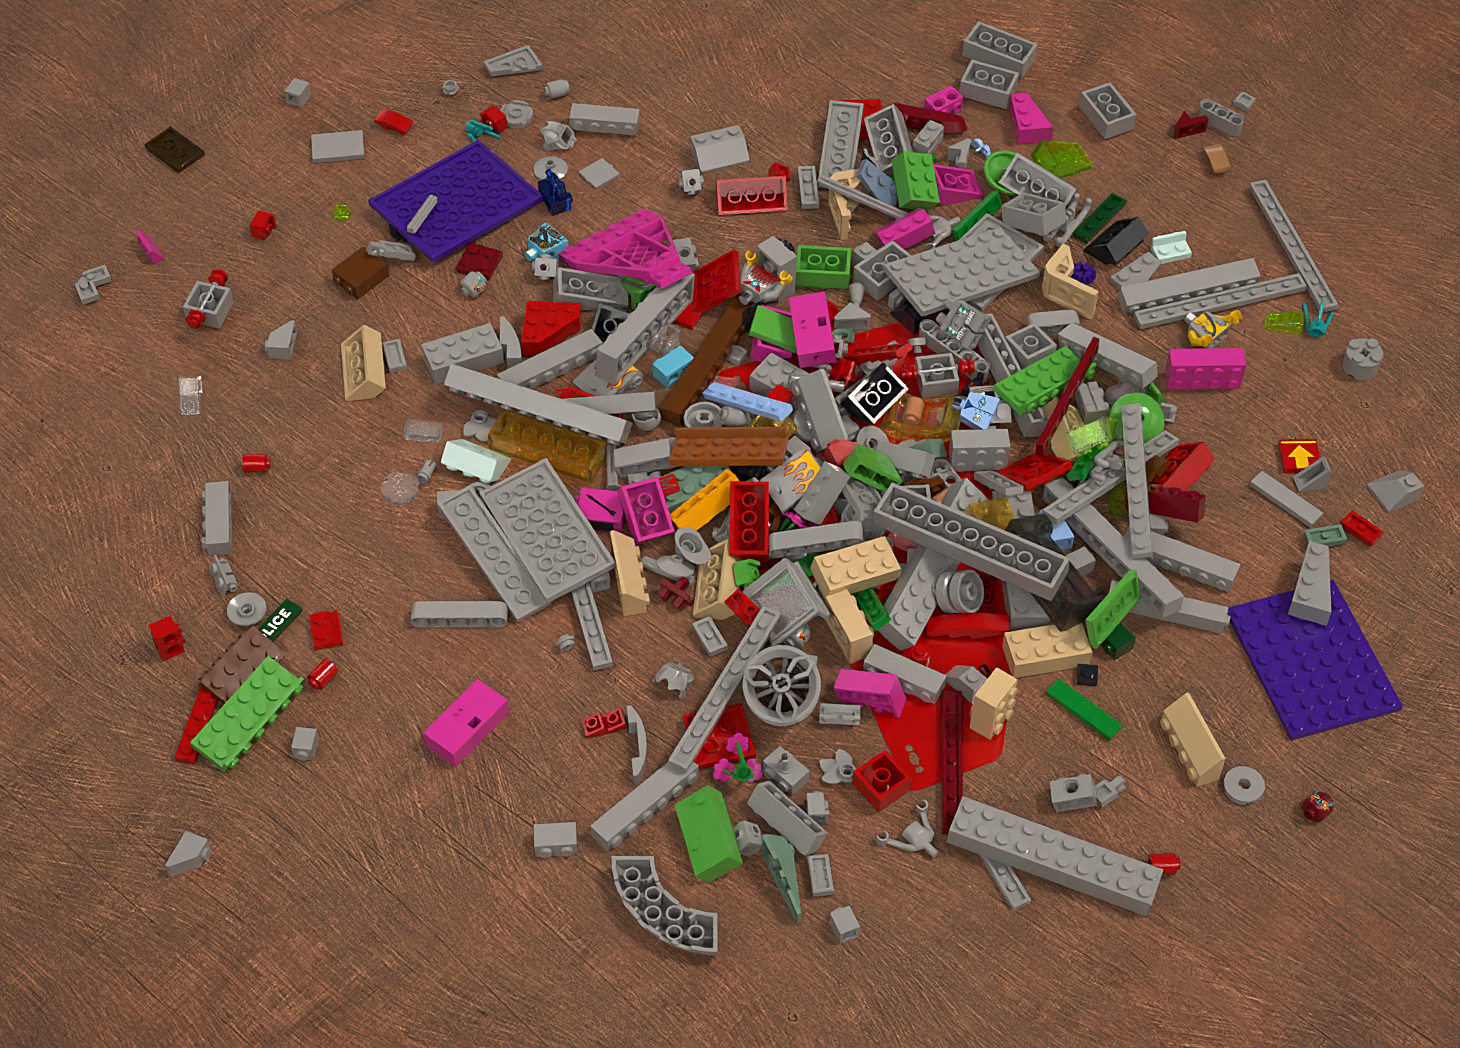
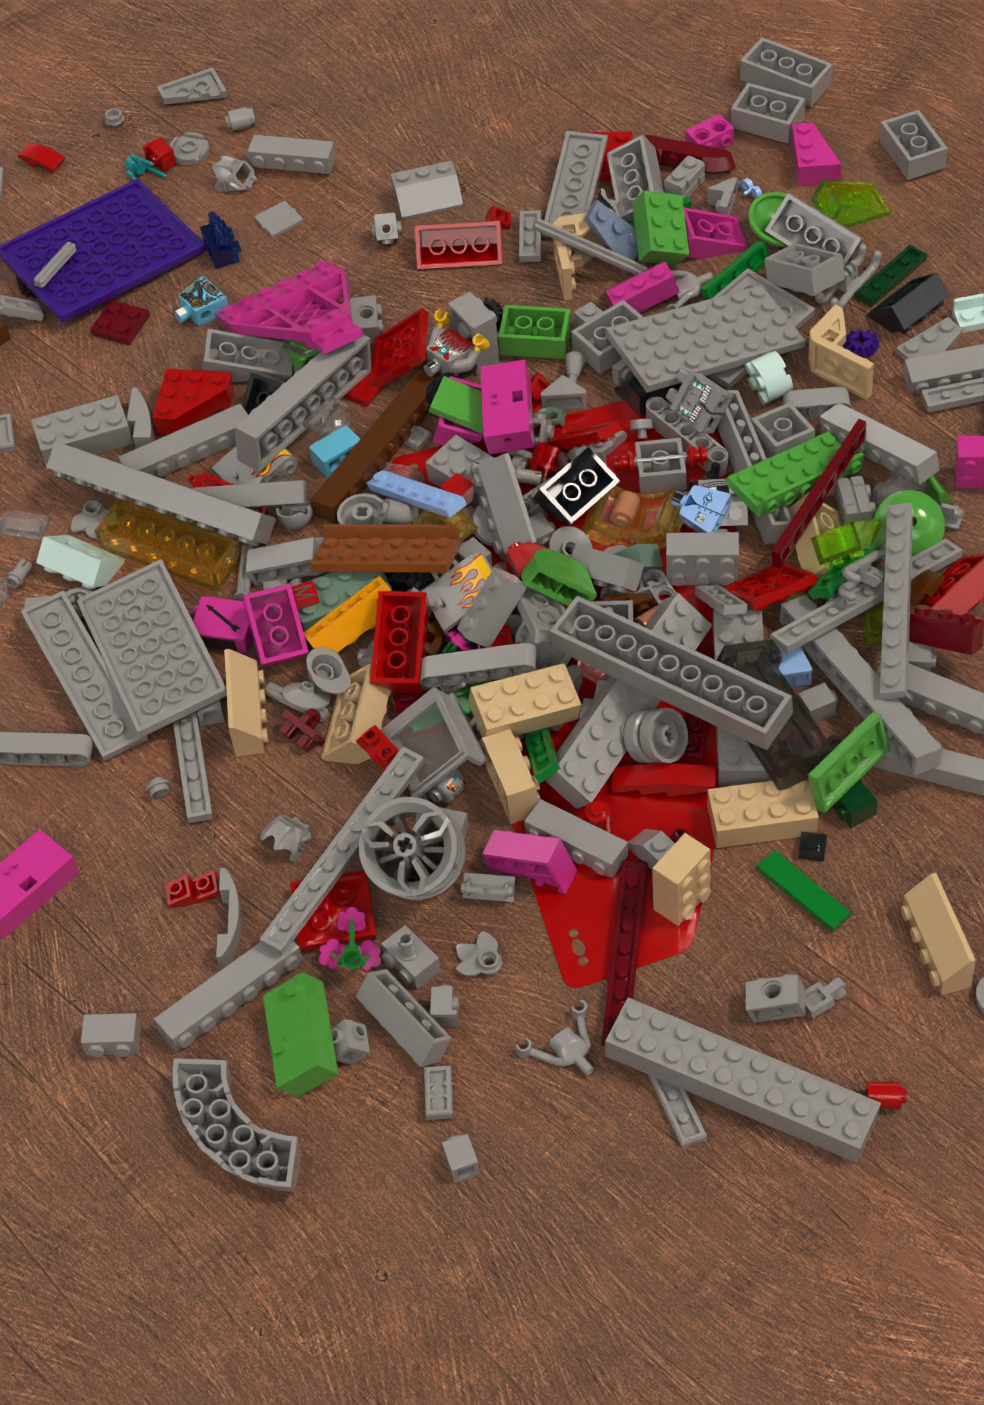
camera: 10 degrees right, 0 degrees up
(473, 284) = (107, 349): light grey head -> none
(551, 263) = (195, 328): light grey brick -> none
(554, 163) = (225, 208): light grey dish -> none
(709, 636) = (337, 784): light grey plate -> none
(746, 572) = (389, 704): bright green brick -> none
(780, 862) = (390, 1076): sand green wedge -> none
(881, 781) = (529, 974): red brick -> none
(994, 512) = (706, 636): clear yellow slope -> none
(1014, 302) = (769, 377): none -> light aqua brick

